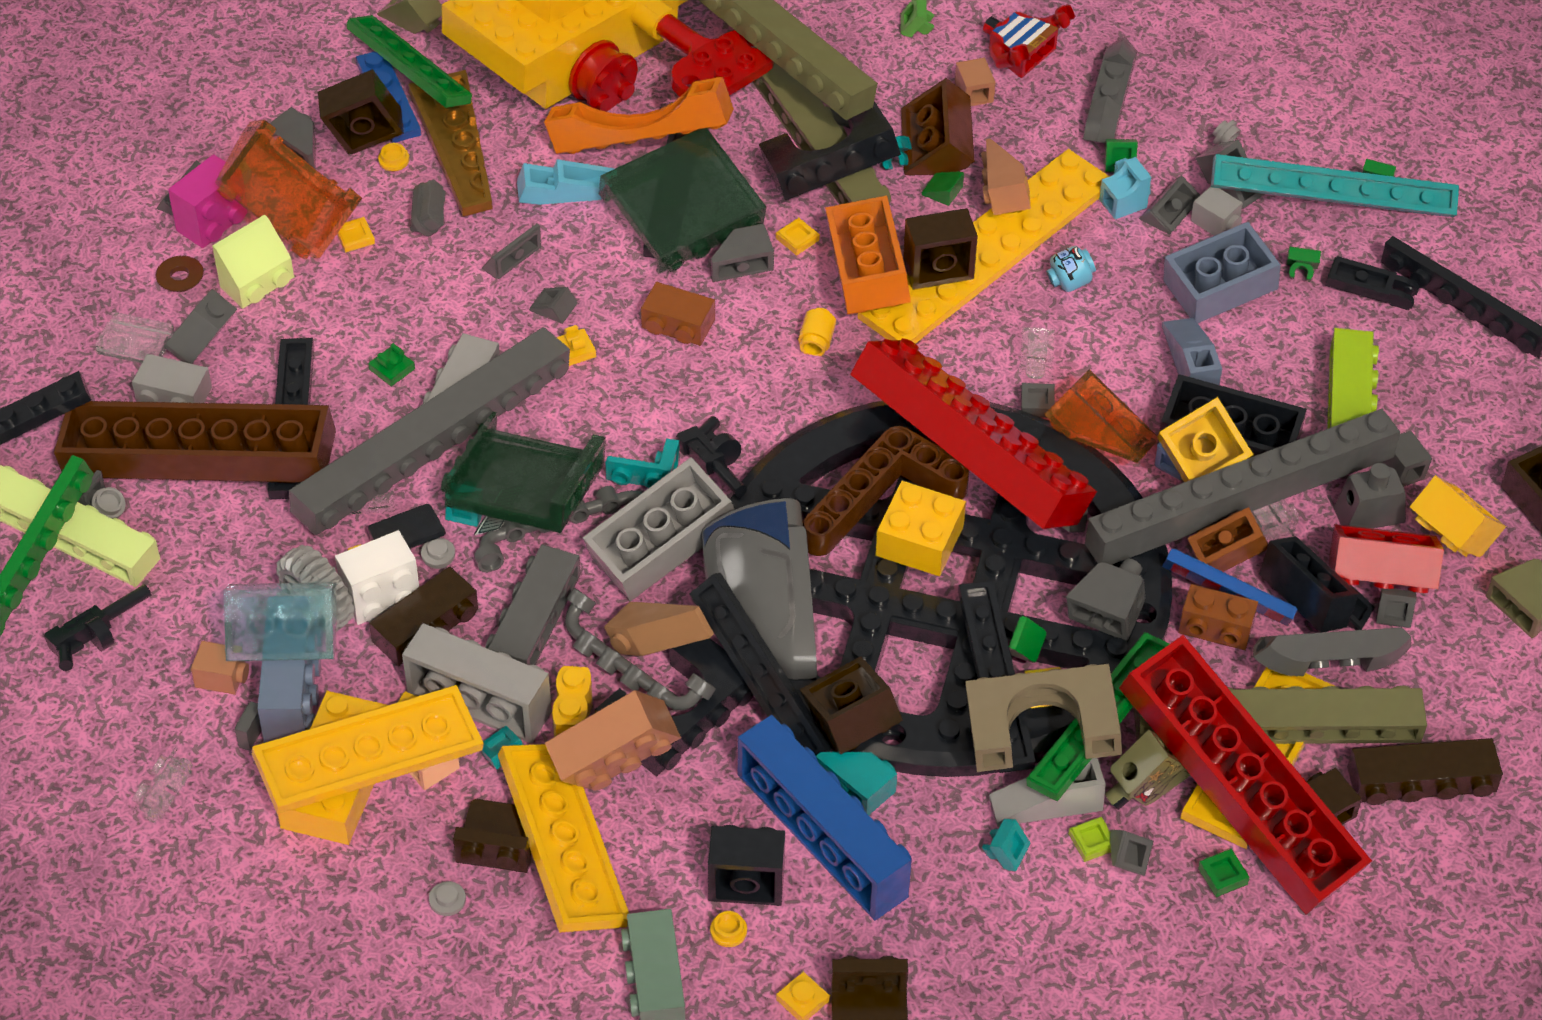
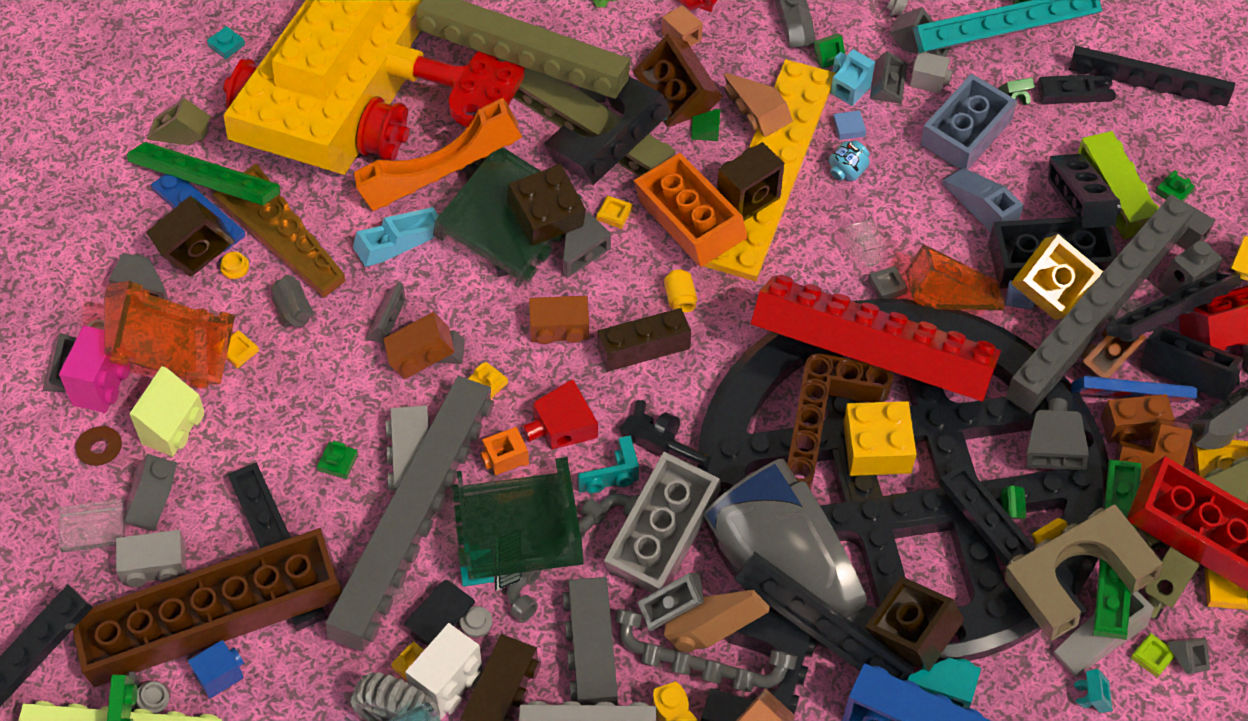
camera: 25 degrees left, 5 degrees up
(177, 499) = (217, 668): none -> blue brick
(523, 287) = (419, 345): none -> dark orange brick
(551, 413) = (504, 451): none -> orange brick
(625, 404) = (562, 418): none -> red torso
(627, 596) = (672, 601): none -> dark grey slope
(717, 197) = (546, 204): none -> dark brown brick
(750, 361) = (644, 339): none -> dark brown brick
(1097, 236) = (849, 125): none -> medium blue tile
(1223, 648) = (1168, 440): none -> dark orange brick
(1298, 377) = (1083, 191): none -> black brick
(1325, 516) = (1173, 305): none -> black plate
(1418, 417) = (1175, 186): none -> green tile

